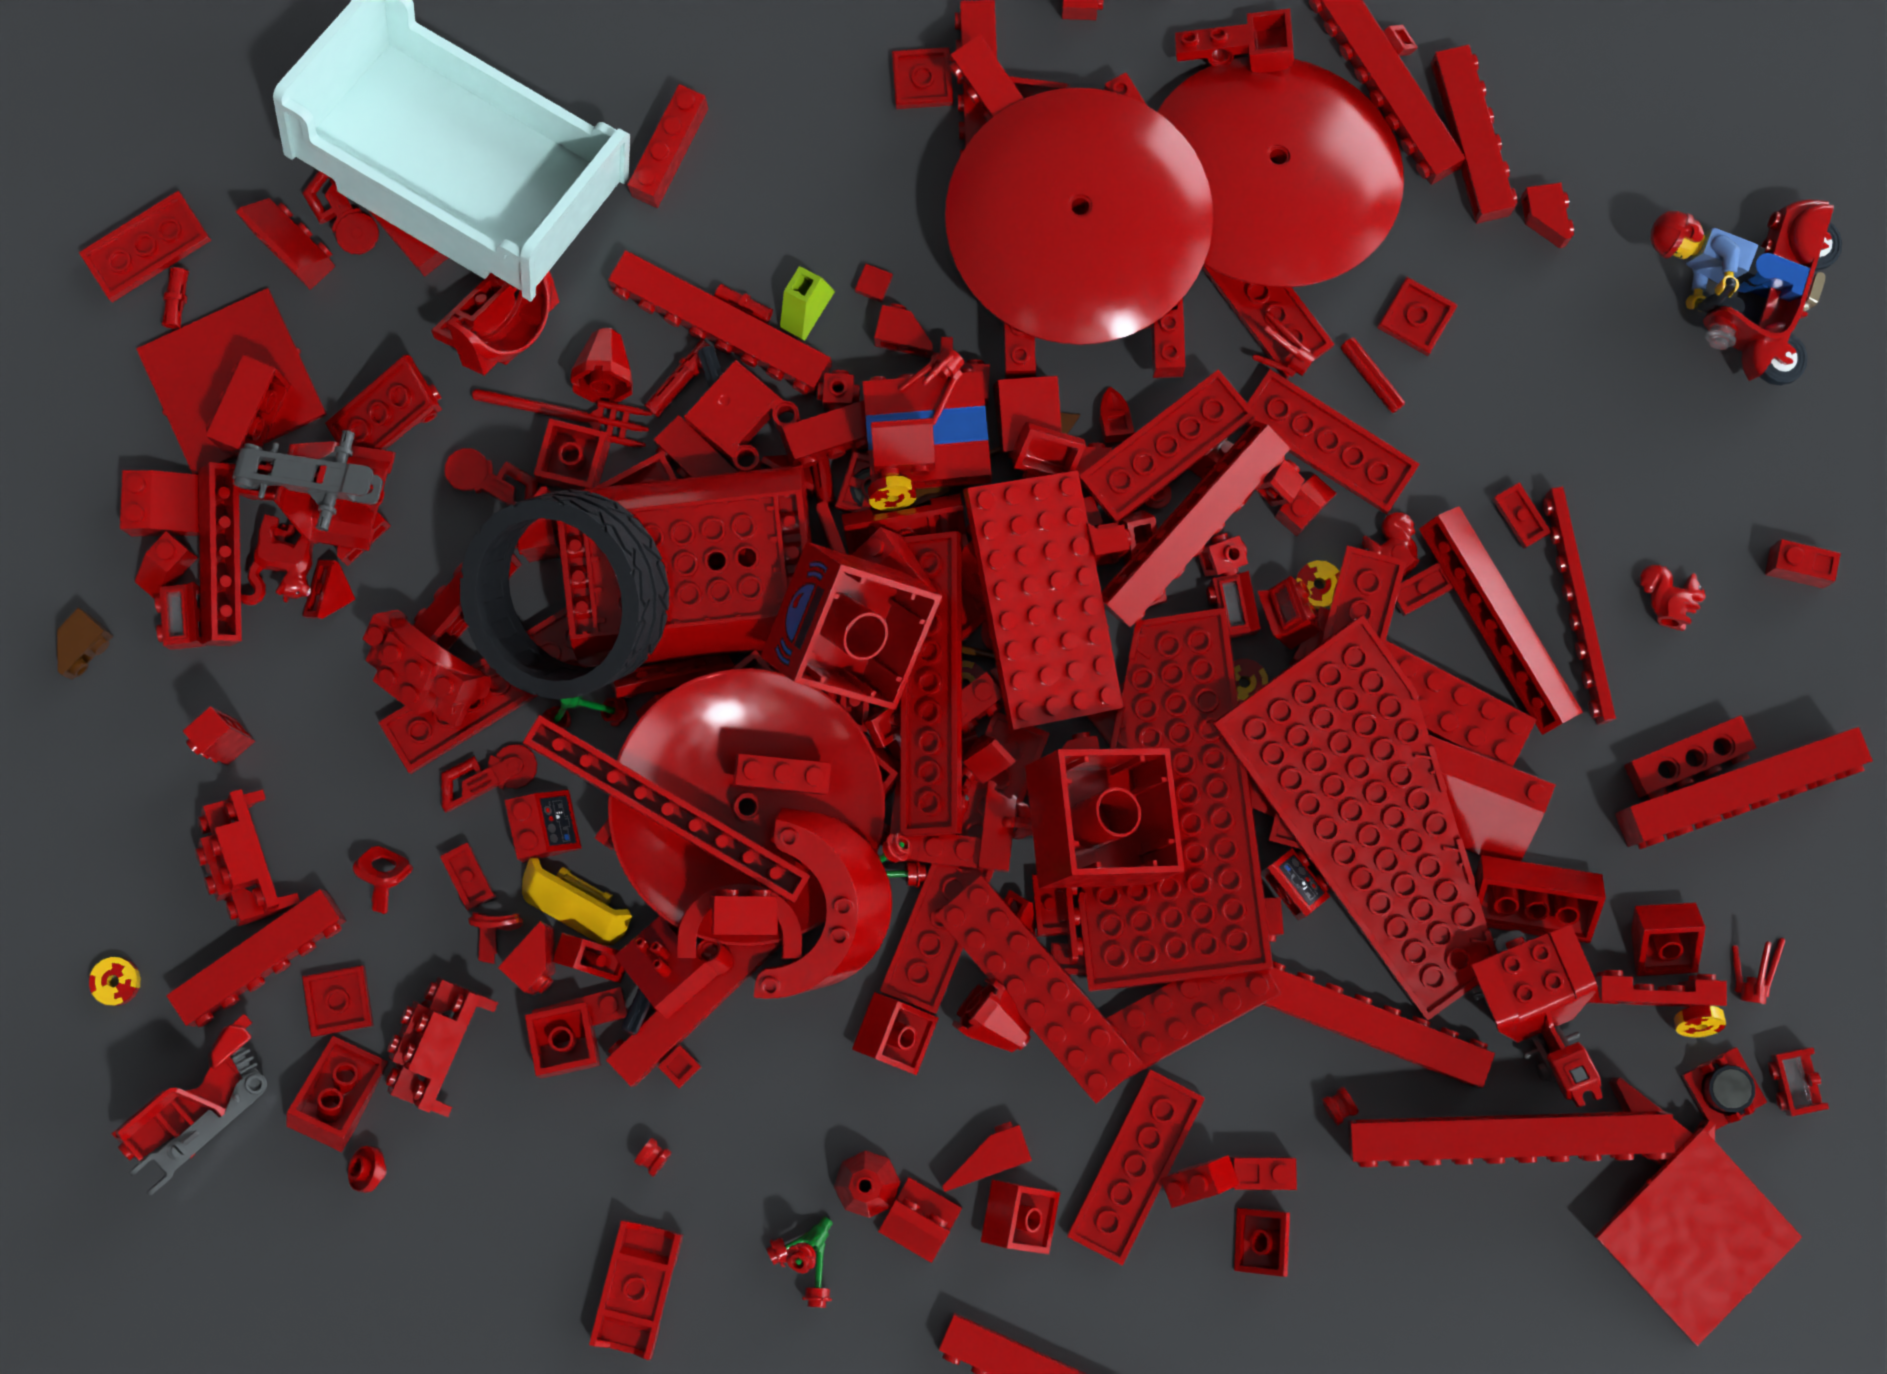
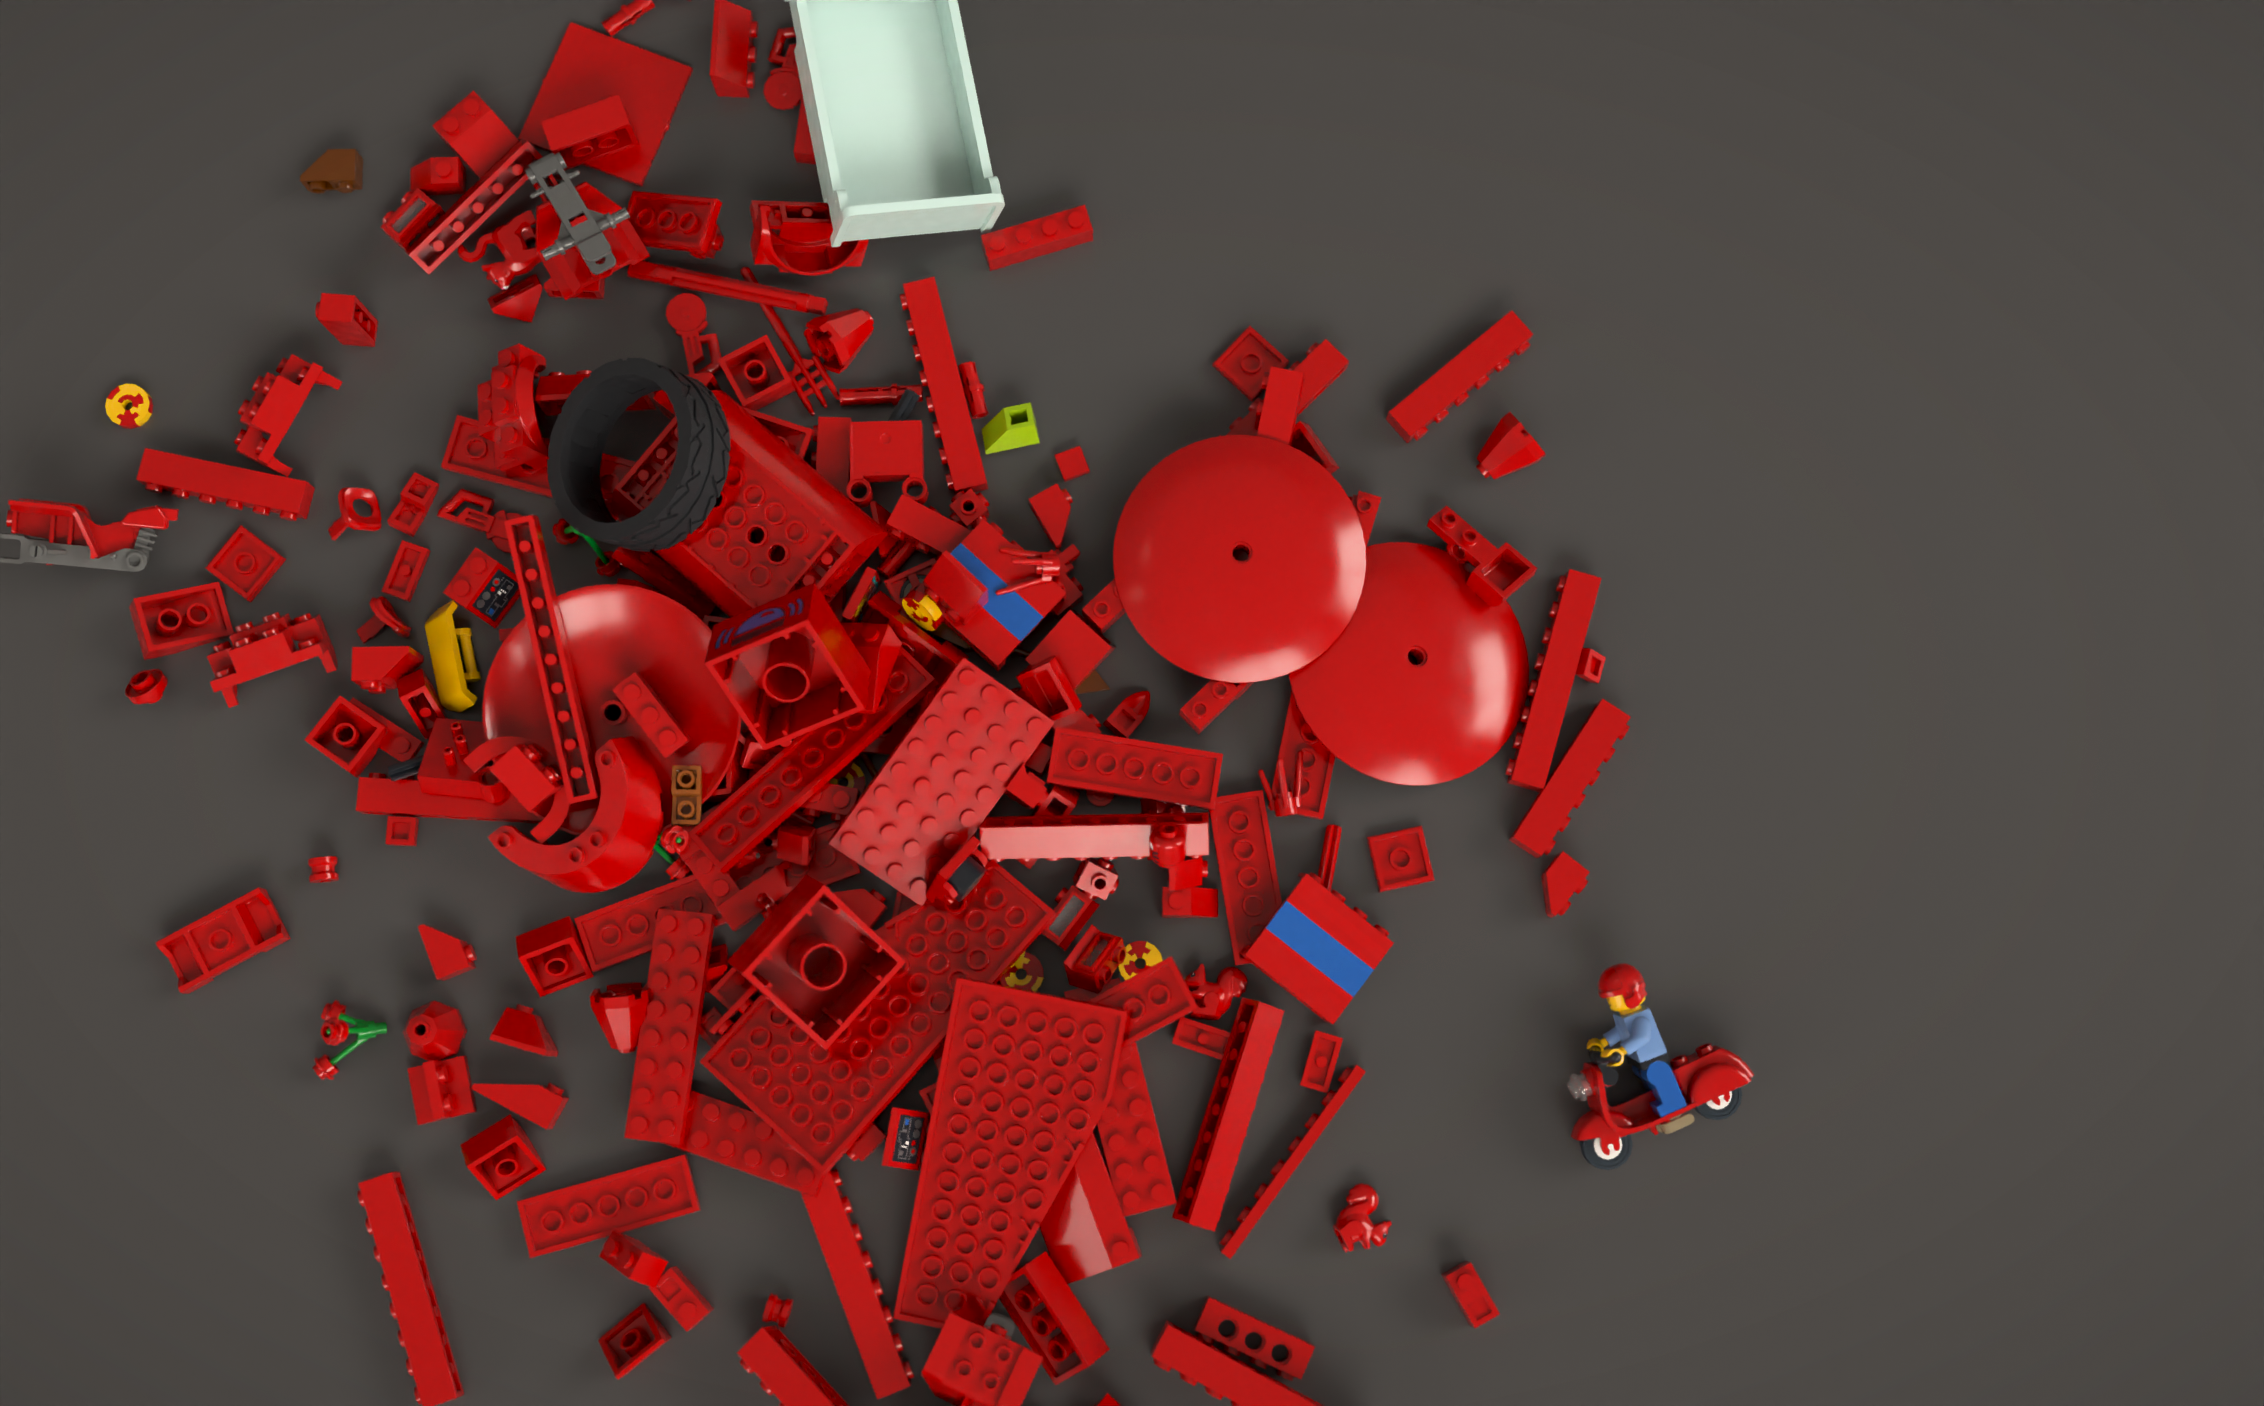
camera: 40 degrees right, 0 degrees up
(417, 823) = (414, 504): none -> red slope
(478, 417) = (728, 287): none -> red piece
(813, 1116) = (447, 953): none -> red slope
(868, 809) = (686, 795): none -> dark orange slope
(935, 1109) = (524, 1030): none -> red slope
(1129, 653) = (959, 874): none -> red piece
(1257, 471) = (1167, 845): none -> red head
(1435, 436) = (1318, 948): none -> panel

